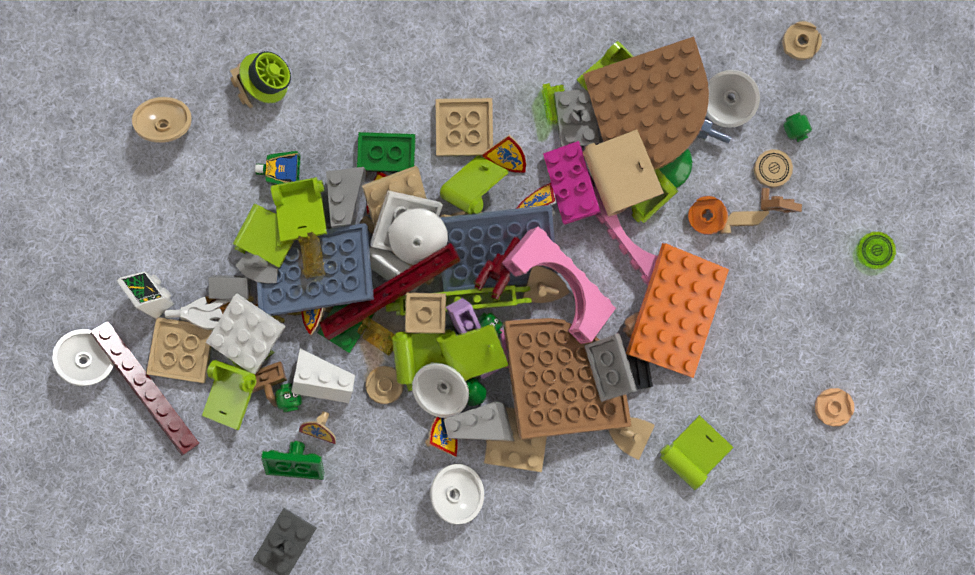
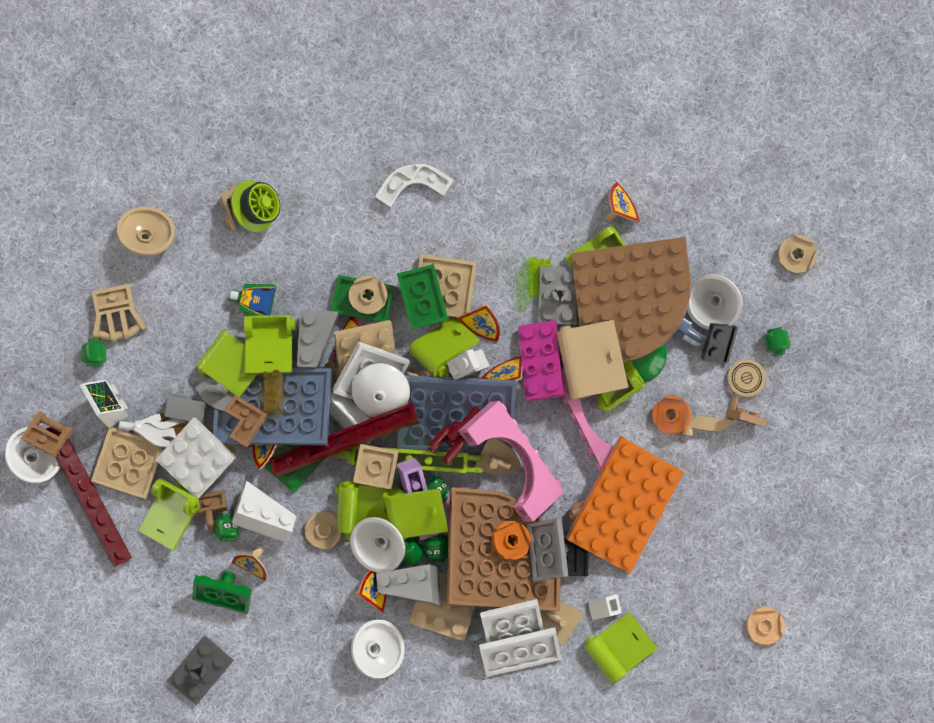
camera: 10 degrees right, 0 degrees up
(91, 340) = (43, 439): none -> medium nougat plate
(130, 247) = (94, 353): none -> green head
(142, 193) = (112, 301): none -> tan plate
(292, 288) = (249, 419): none -> medium nougat plate
(377, 335) = (324, 480): clear yellow hinge -> none
(393, 135) = (358, 289): none -> tan plate
(415, 24) = (410, 175): none -> white plate
(444, 139) = (422, 296): none -> green plate
(499, 384) = (436, 548): none -> green head
(500, 196) = (468, 364): none -> white arch
(562, 368) = (515, 530): none -> orange plate
(588, 450) = (512, 621): none -> white plate
(599, 473) = (520, 652): none -> white plate
(622, 20) = (621, 204): none -> shield
(674, 414) = (604, 607): none -> white brick
(742, 137) = (719, 342): none -> black plate
(876, 250) = (834, 477): clear neon green tile -> none

